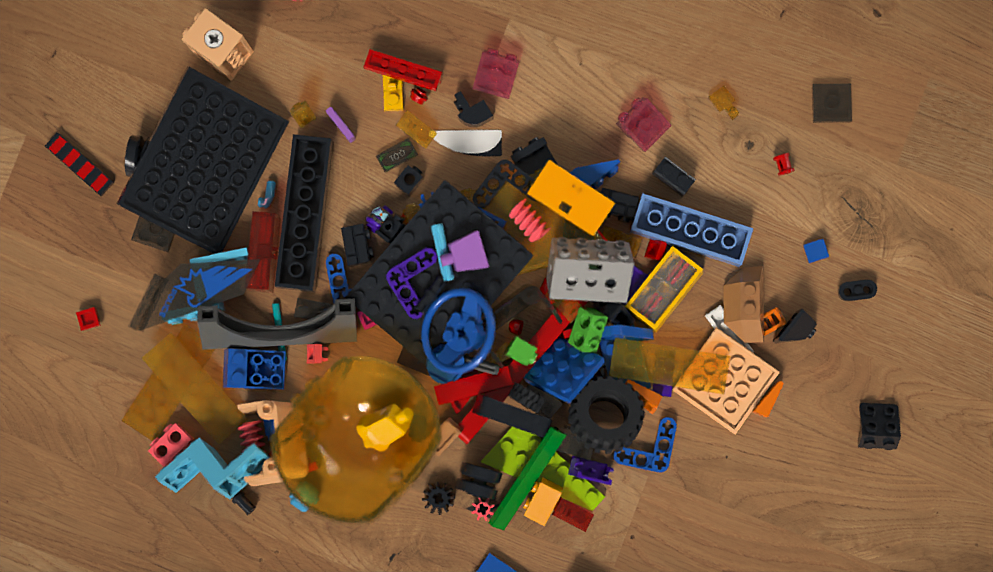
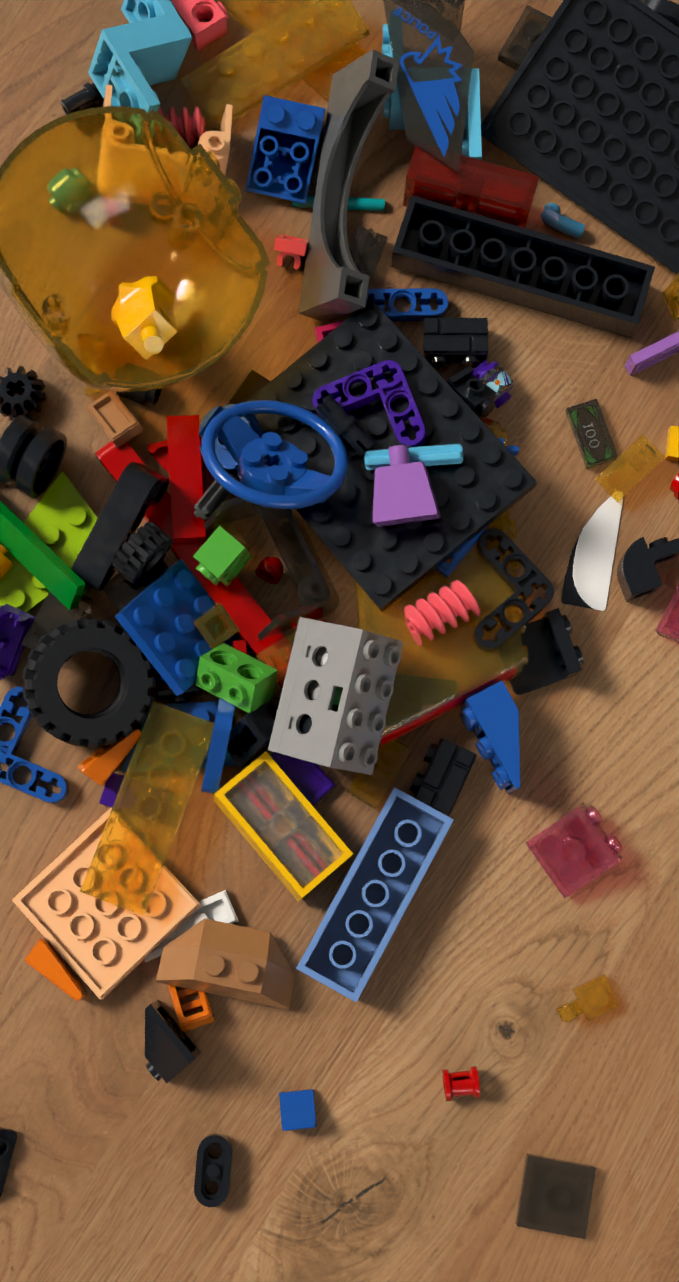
camera: 90 degrees right, 5 degrees down
(408, 189) = (546, 429): black brick -> none
(558, 348) = (216, 625): none -> clear yellow slope
(570, 198) = (466, 686): light orange brick -> none
(655, 250) = (353, 827): red plate -> none
(673, 176) = (474, 883): black brick -> none

